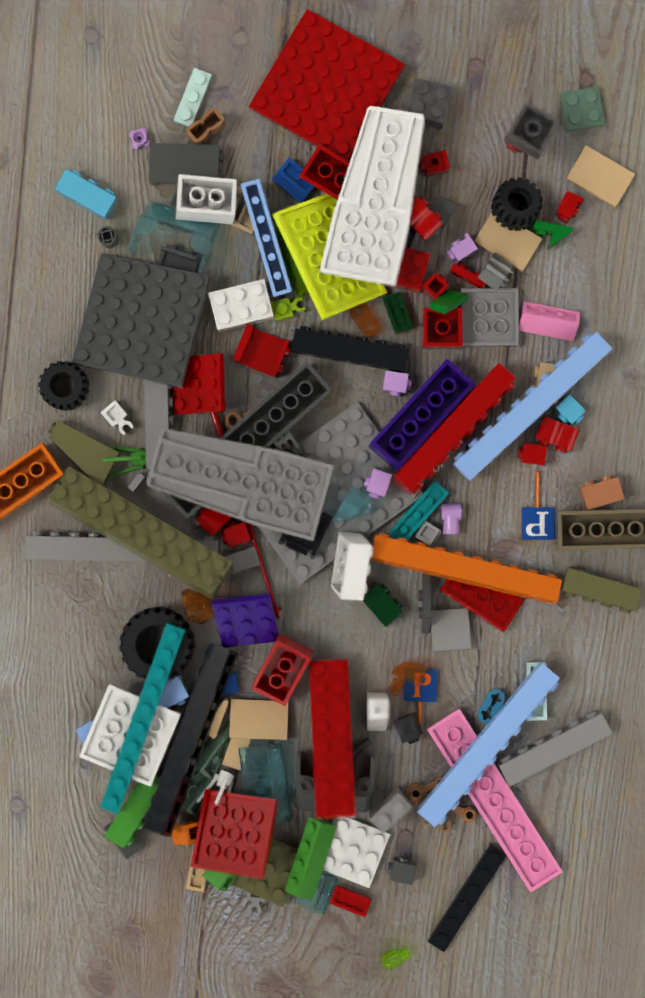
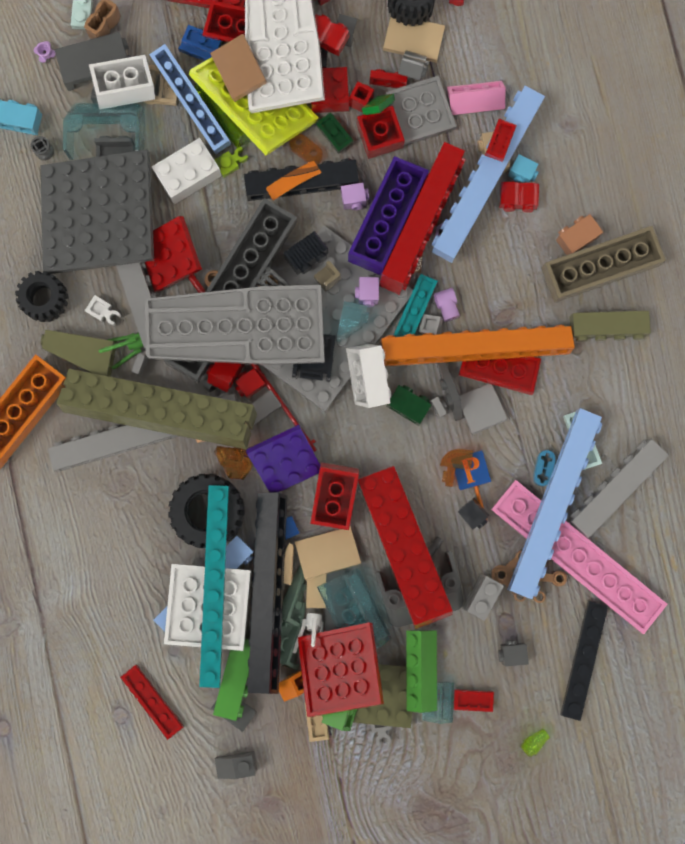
camera: 25 degrees left, 5 degrees down
(50, 803) = (152, 702): none -> red tile
(110, 888) = (236, 766): none -> dark grey slope
(262, 351) = (219, 208): red panel -> none
(323, 225) = (238, 68): none -> medium nougat tile
(330, 427) = (306, 253): none -> black brick
(341, 350) = (293, 179): none -> orange sticker
(343, 456) = (328, 276): none -> dark tan panel
(355, 851) = (462, 649): white plate -> none
(377, 711) = (439, 507): white slope -> none
(410, 615) = (439, 407): none -> light grey plate
(462, 249) = (375, 56): lavender brick -> none
(532, 454) = (503, 221): red brick -> none
(537, 521) = (529, 282): blue piece -> none
(553, 380) = (500, 140): none -> red plate
(556, 232) = (454, 14): green slope -> none

